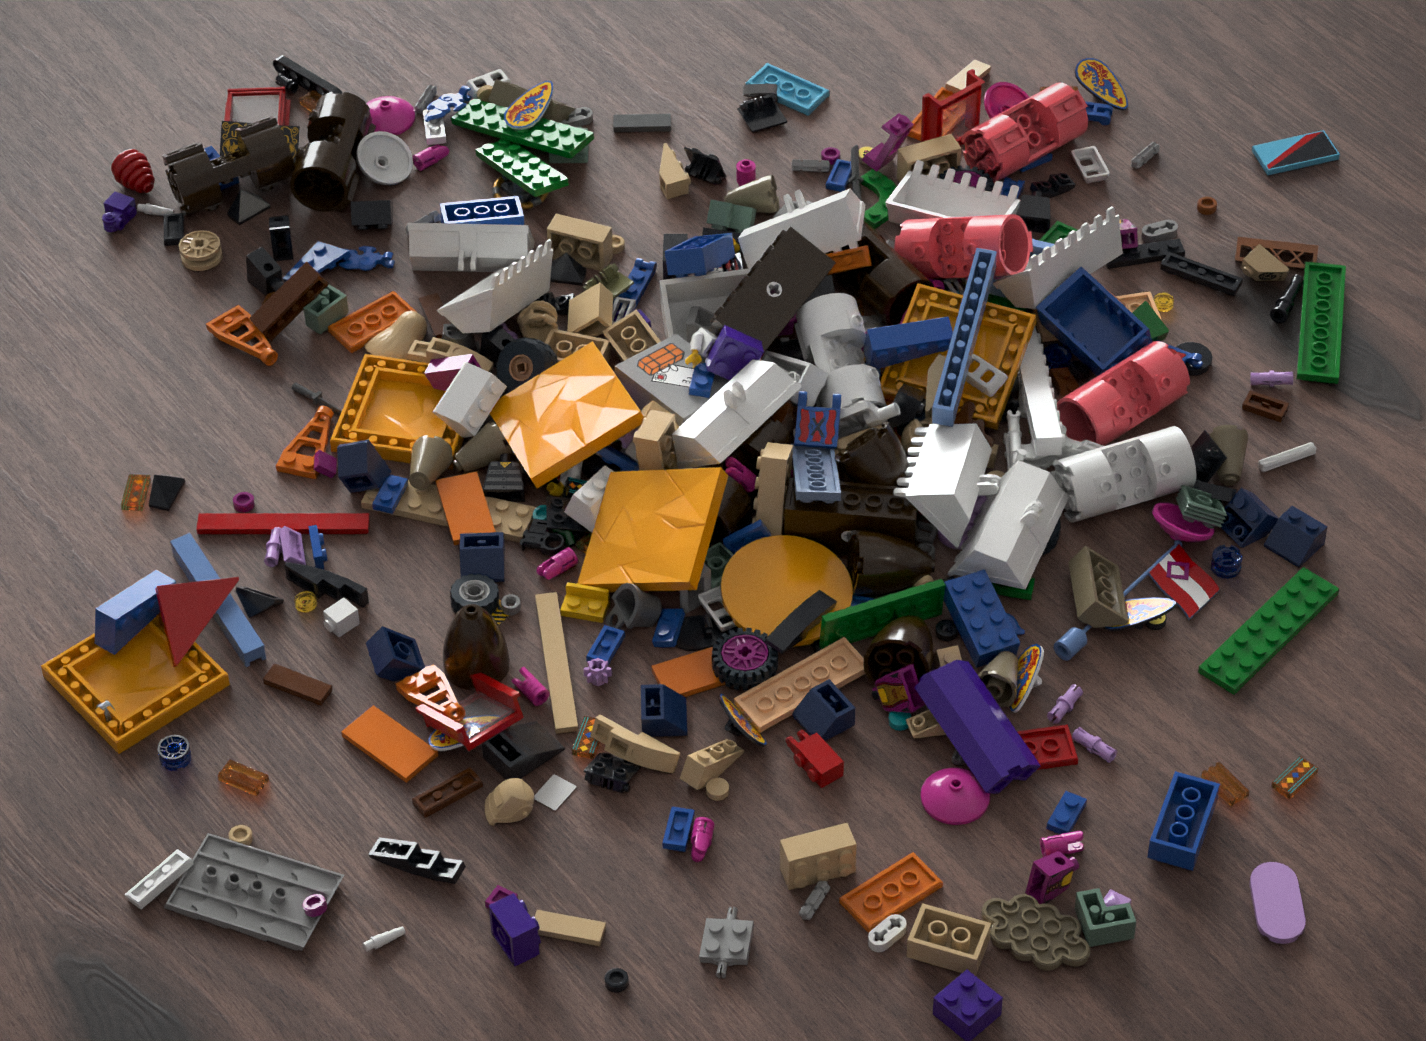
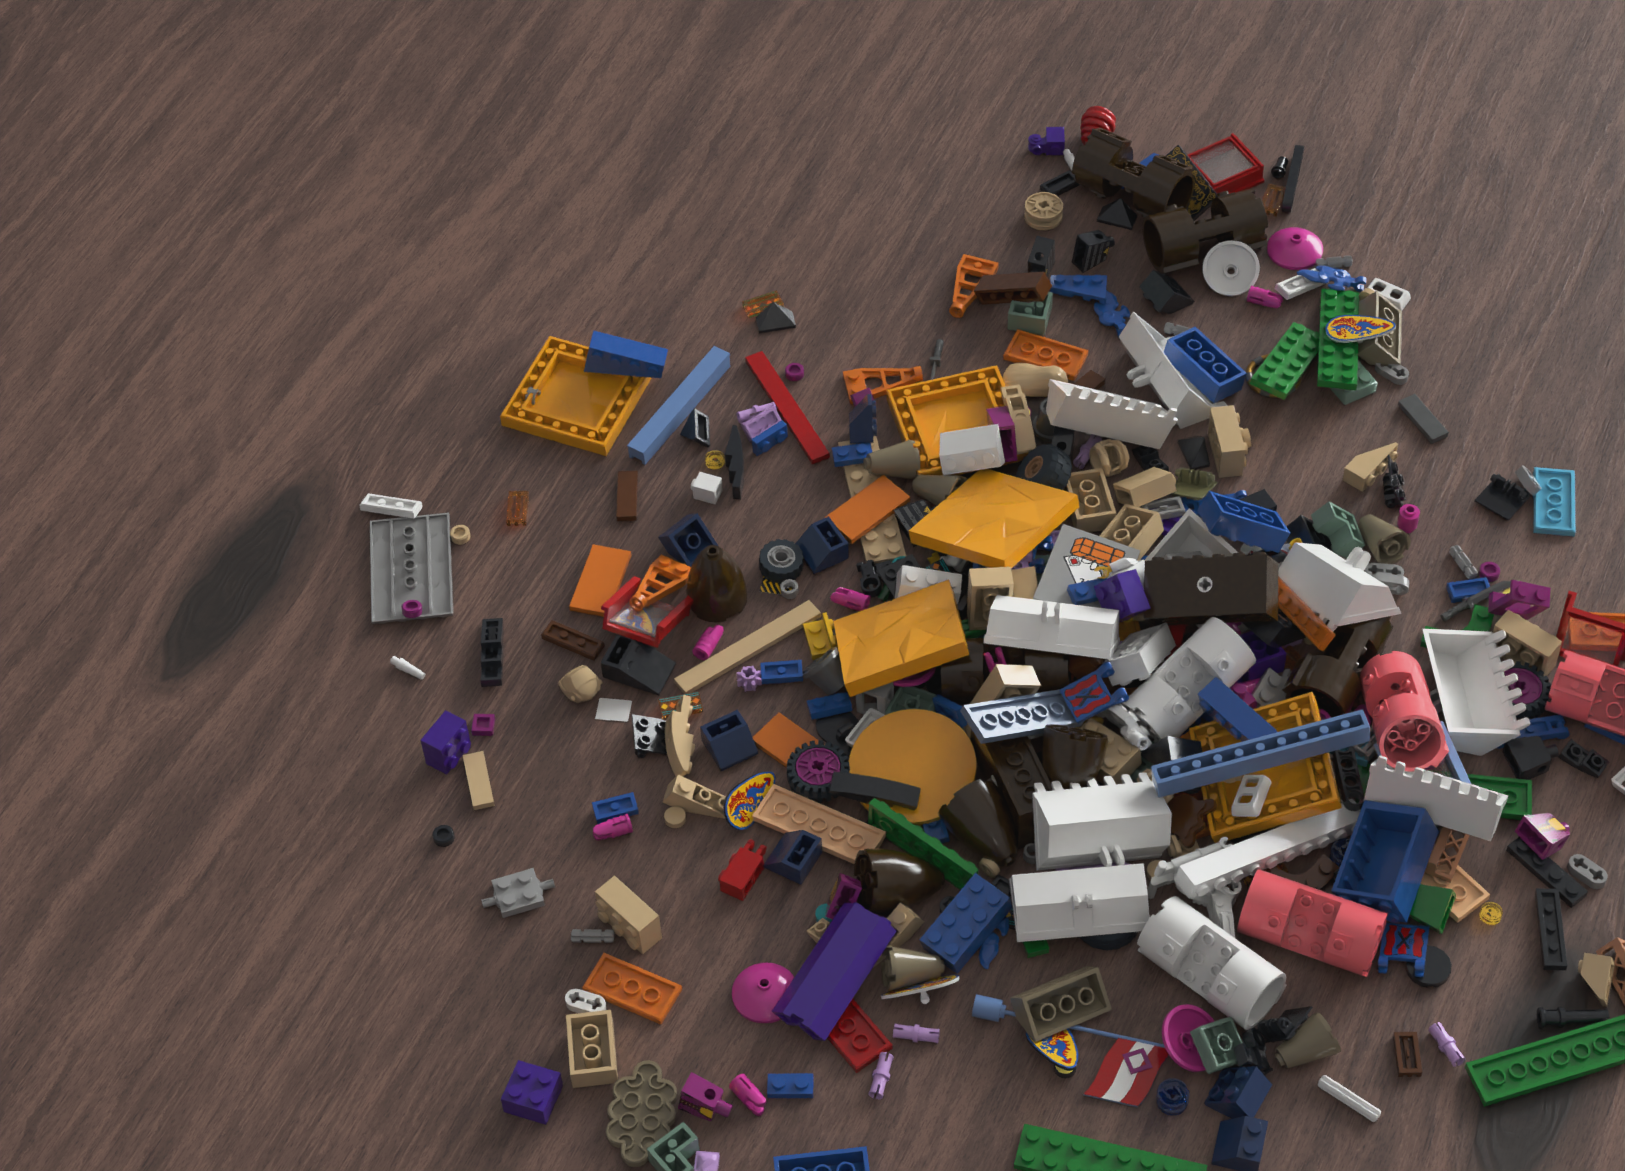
camera: 65 degrees right, 5 degrees up
(174, 752) = (515, 455): clear blue wheel -> none
(188, 609) = (640, 389): red tile -> none
(618, 244) = (1255, 469): tan tile -> none

